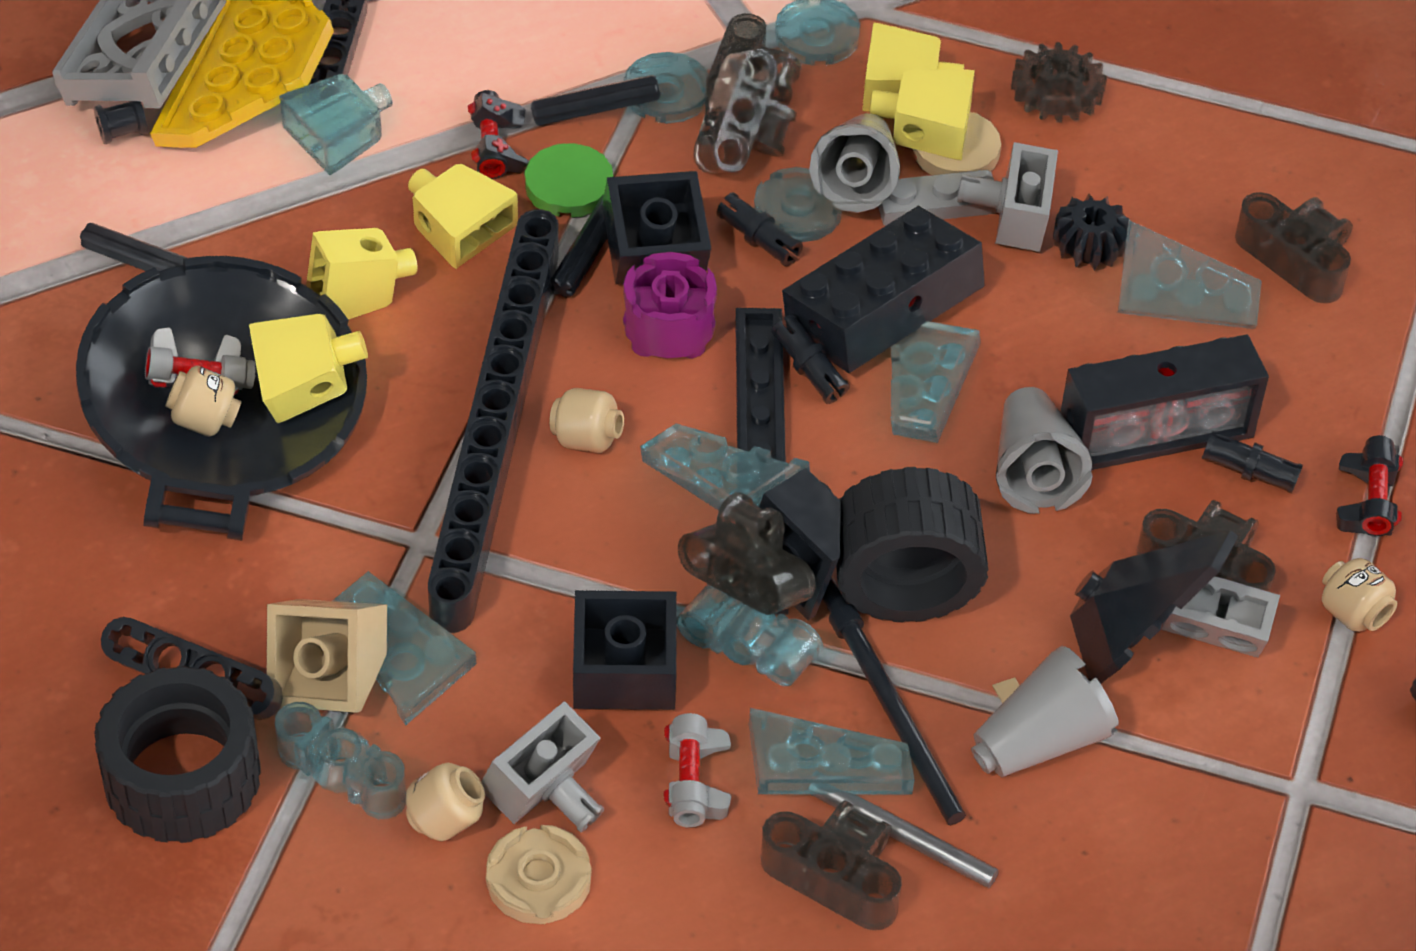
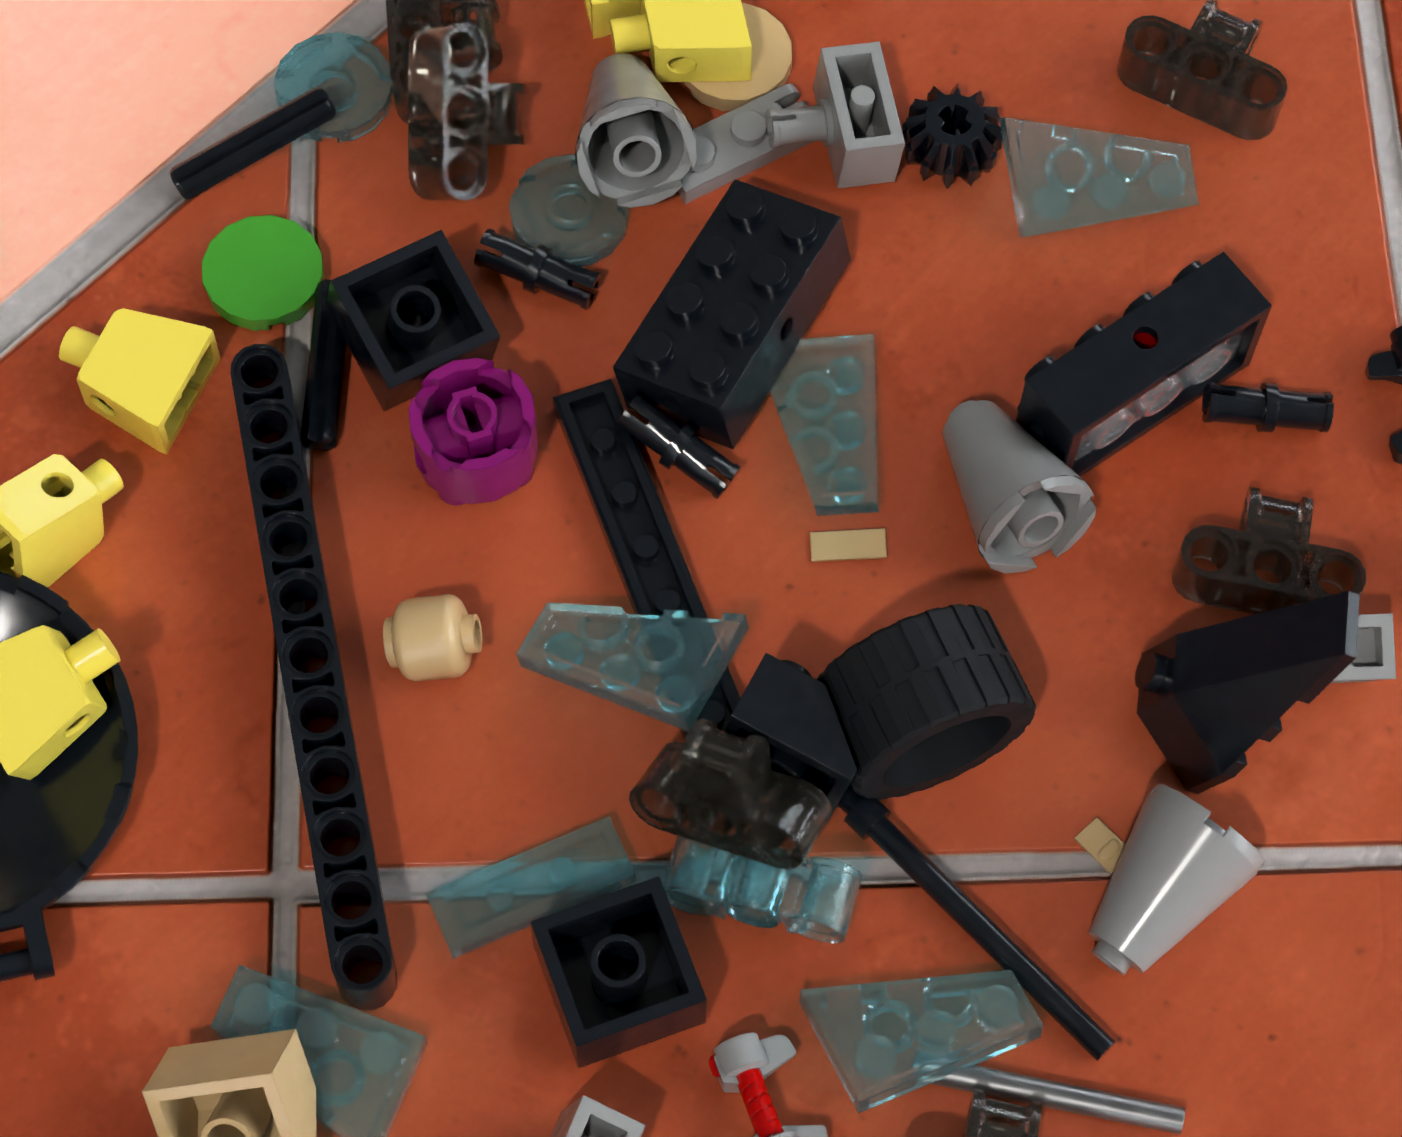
camera: 20 degrees left, 15 degrees up
(492, 153) = (150, 268): black piece -> none
(552, 591) = (530, 887): none -> clear light blue tile
(903, 458) = (848, 545): none -> tan piece

